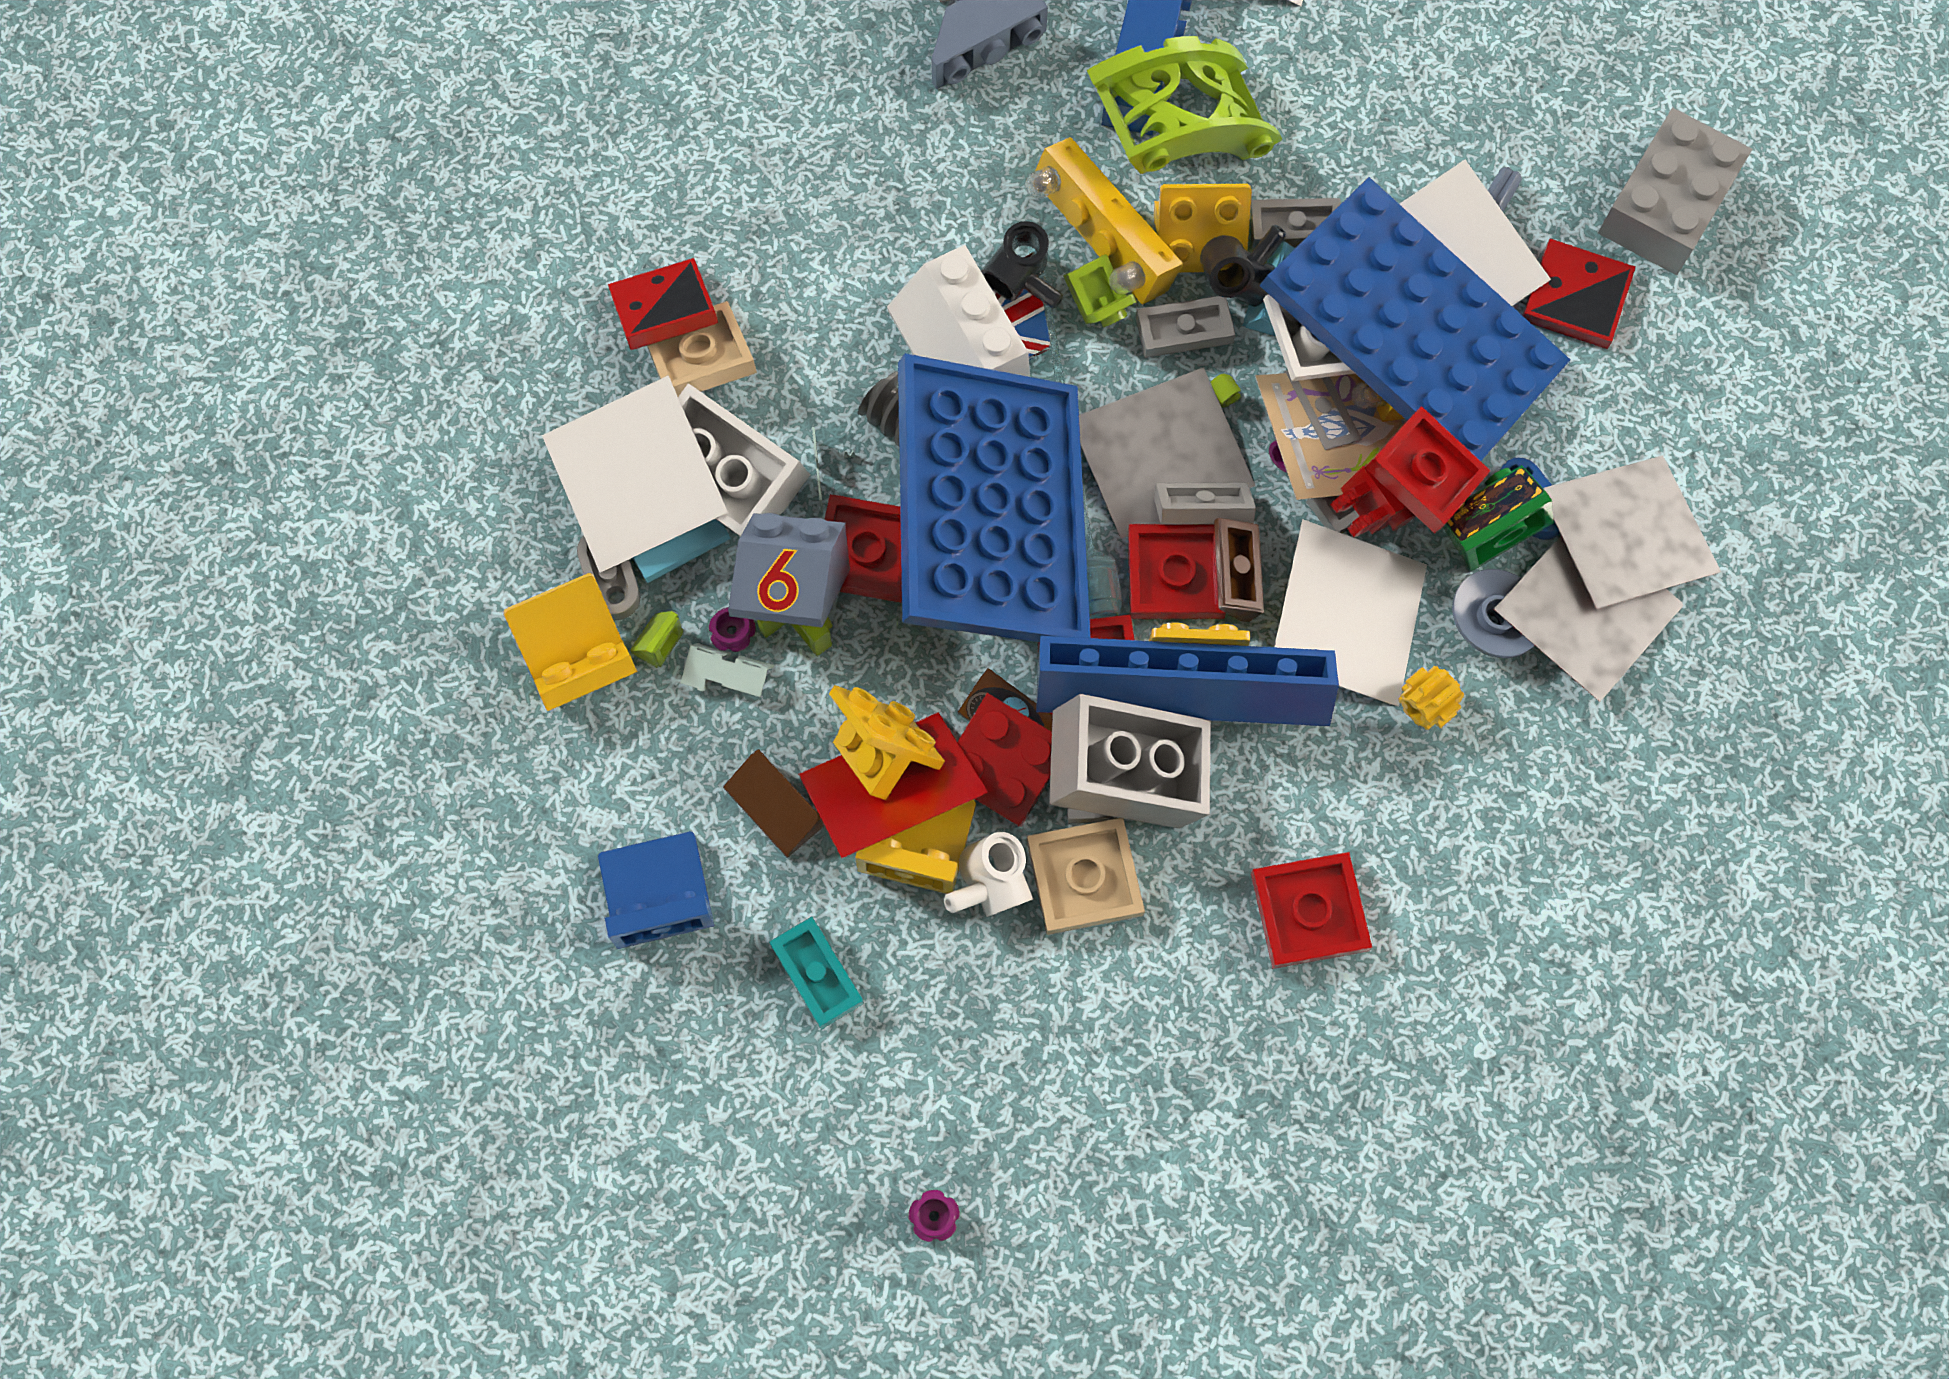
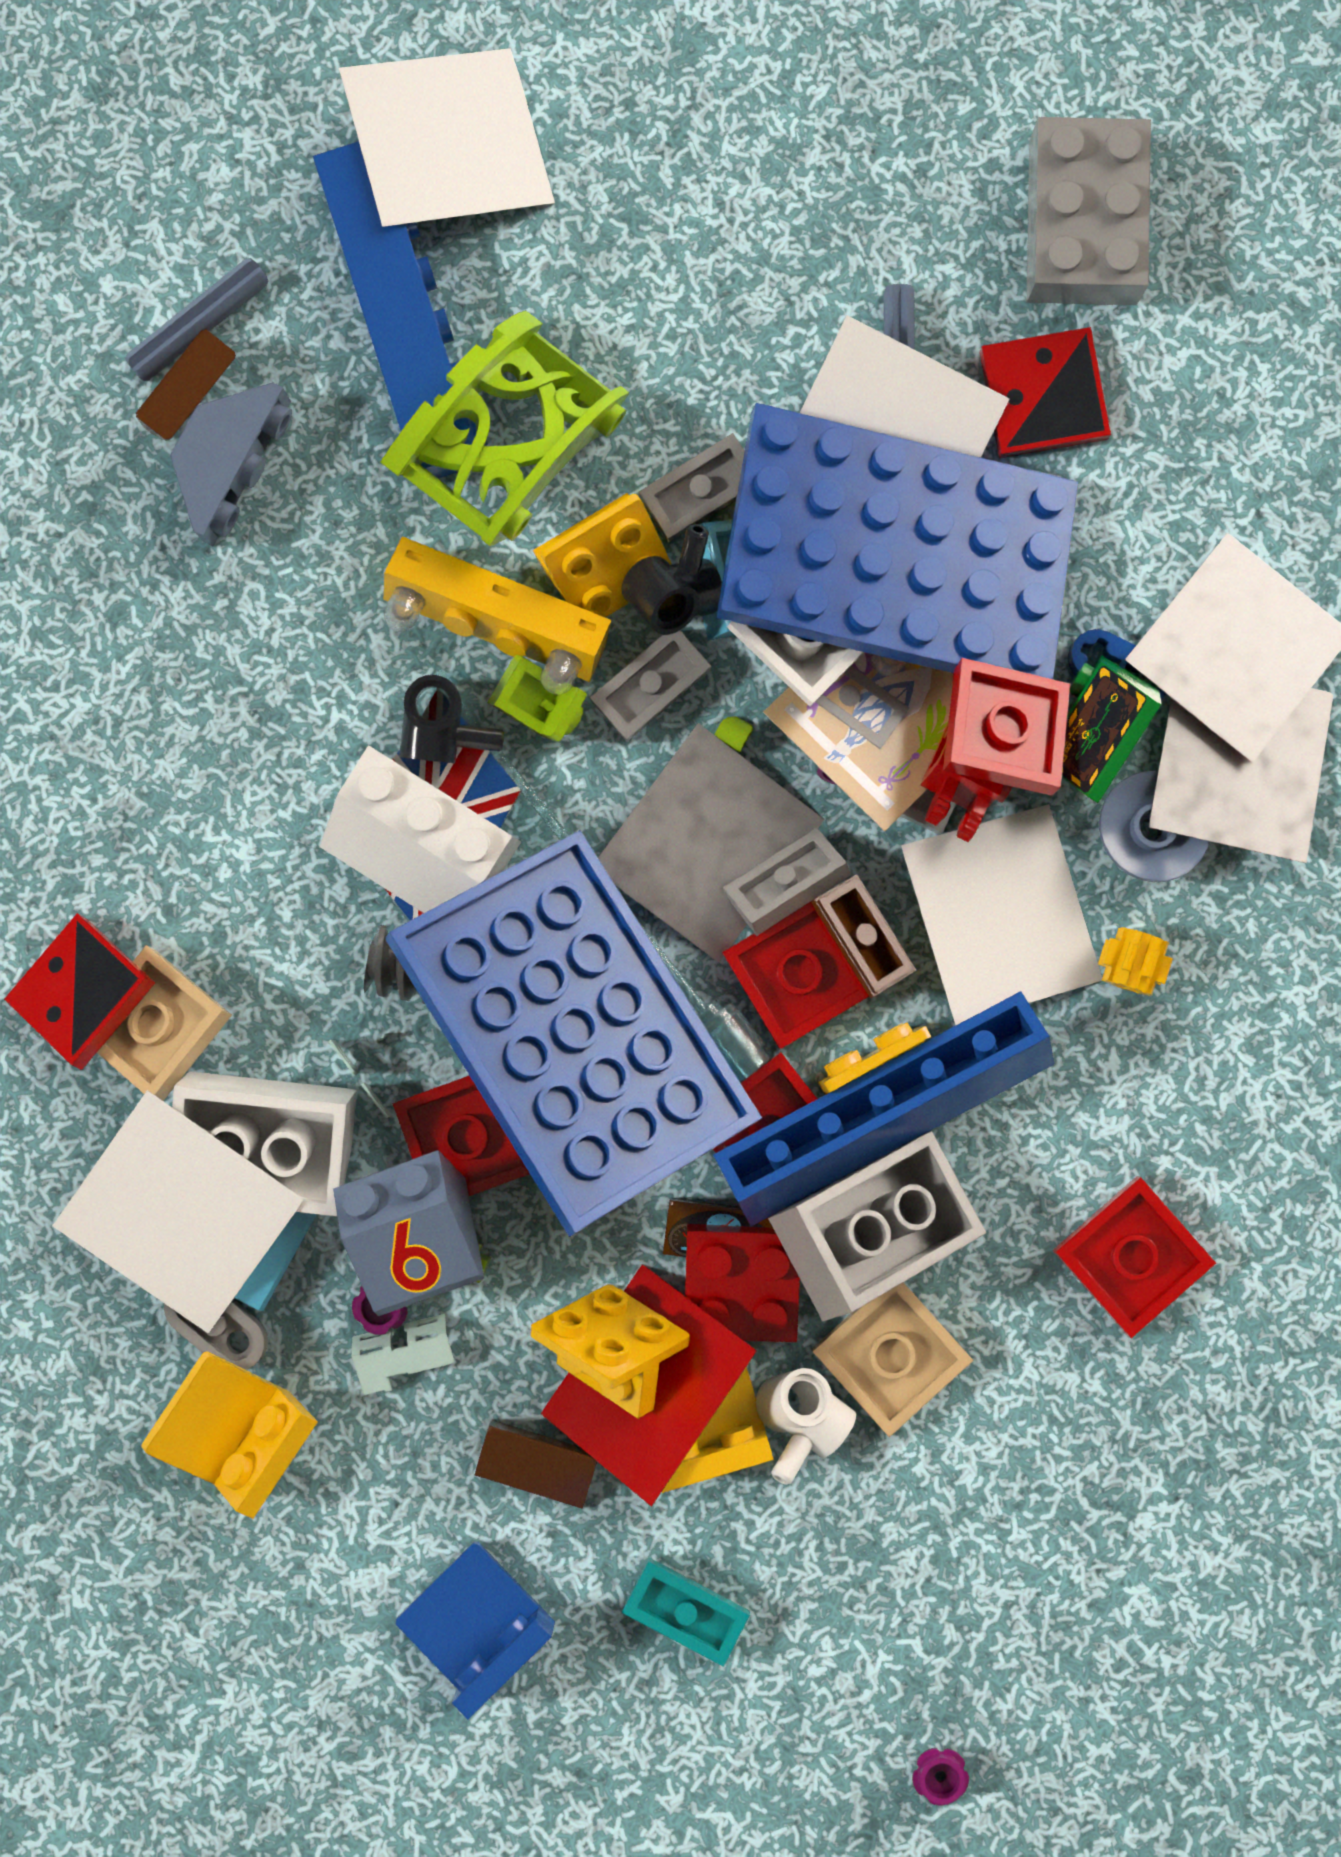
camera: 25 degrees left, 15 degrees up
(658, 638) = (309, 1362): lime slope -> none

